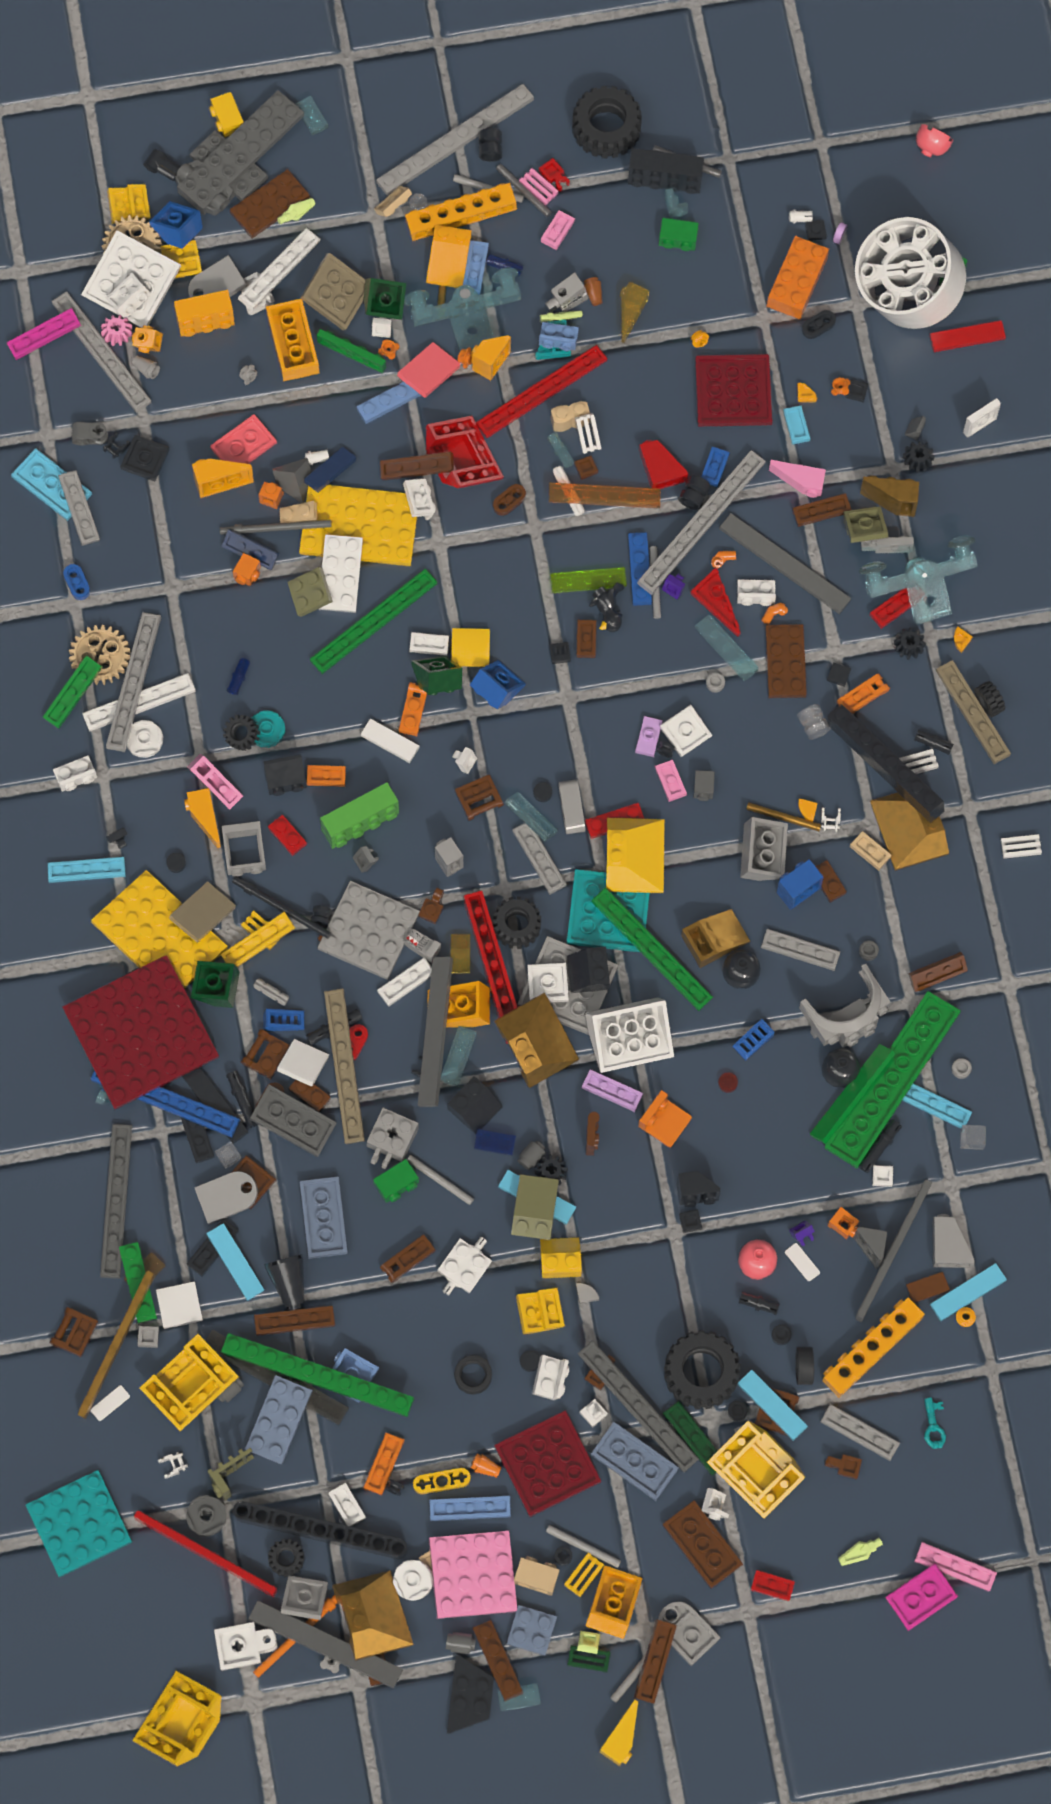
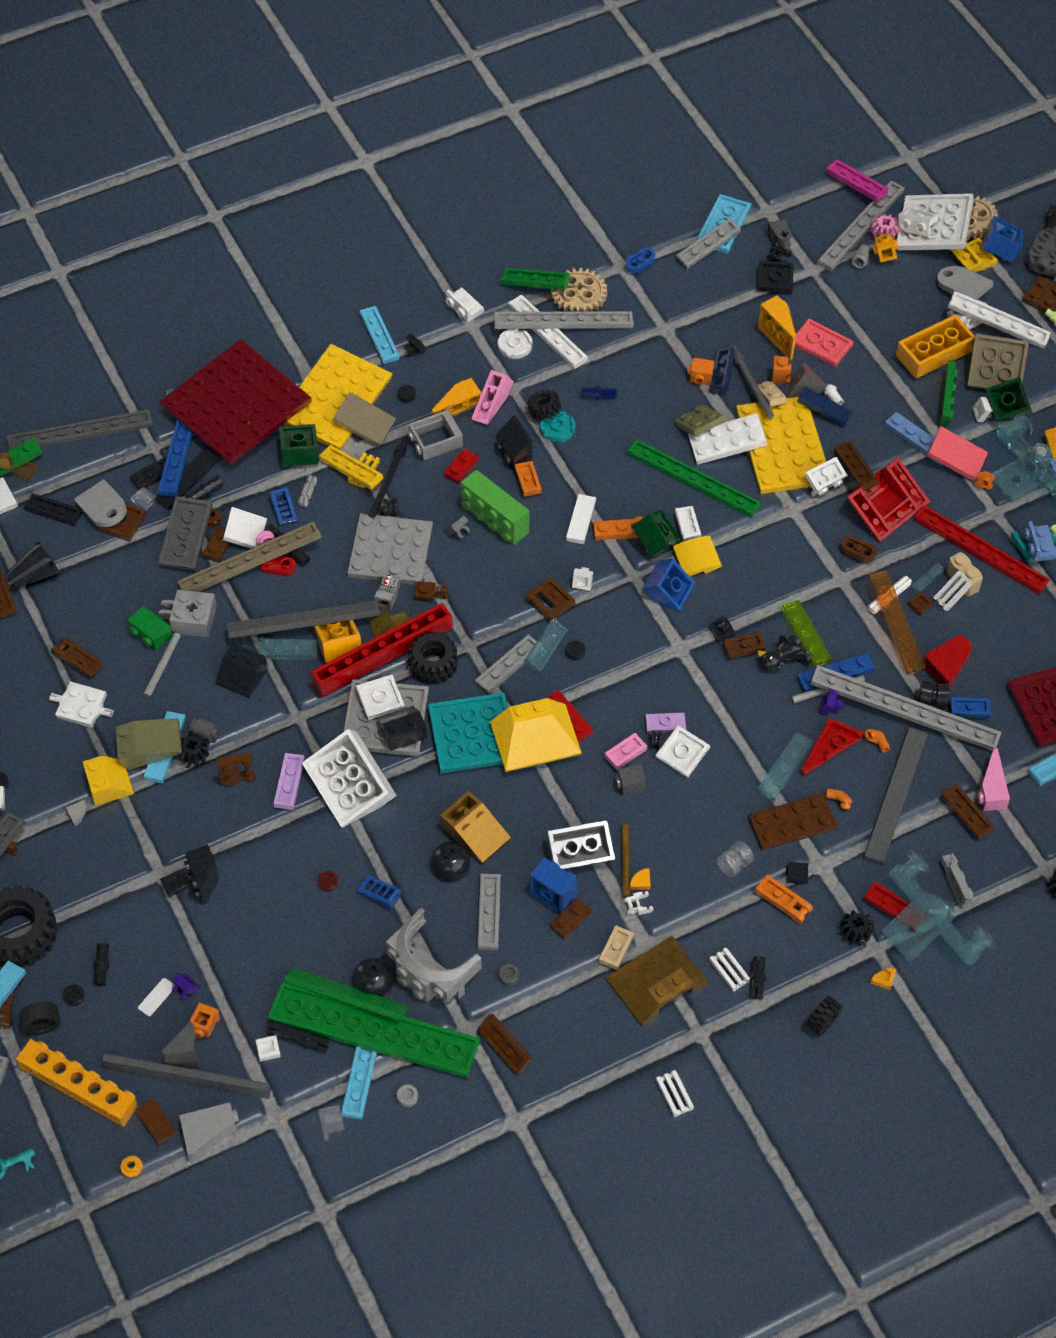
camera: 75 degrees right, 15 degrees down
(128, 201) = (1010, 207): yellow slope -> none
(204, 313) = (929, 277): light orange brick -> none
(235, 1262) = (41, 526): medium azure tile -> none
(248, 374) = (888, 323): light grey plate -> none
(271, 1056) = (248, 505): reddish brown plate -> none
(323, 1217) = (100, 582): sand blue plate -> none
(324, 1044) = (264, 537): none -> bright pink plate
(388, 344) = (964, 422): orange plate -> none
(405, 982) = (347, 588): white tile -> none
(448, 856) = (478, 585): light grey brick -> none
(490, 356) = (994, 494): light orange slope -> none
(495, 1142) = (209, 697): clear blue plate -> none
(537, 1040) = (315, 698): pearl gold slope -> none
(540, 1311) = (50, 777): yellow slope -> none
(571, 806) = (568, 675): light grey beam -> none
(652, 949) = (442, 776): green tile -> none
(664, 1120) = (271, 830): orange bracket -> none
(715, 682) = (745, 766): light grey tile -> none
(756, 592) = (854, 777): white bracket -> none
(757, 1259) = (148, 952): coral cylinder -> none
(865, 524) = (967, 850): olive plate -> none
(886, 763) = (710, 930): black brick -> none
(894, 495) = (1013, 874): pearl gold slope -> none
(968, 1292) = (160, 1163): medium azure tile -> none
(973, 712) = (798, 1014): dark tan plate -> none

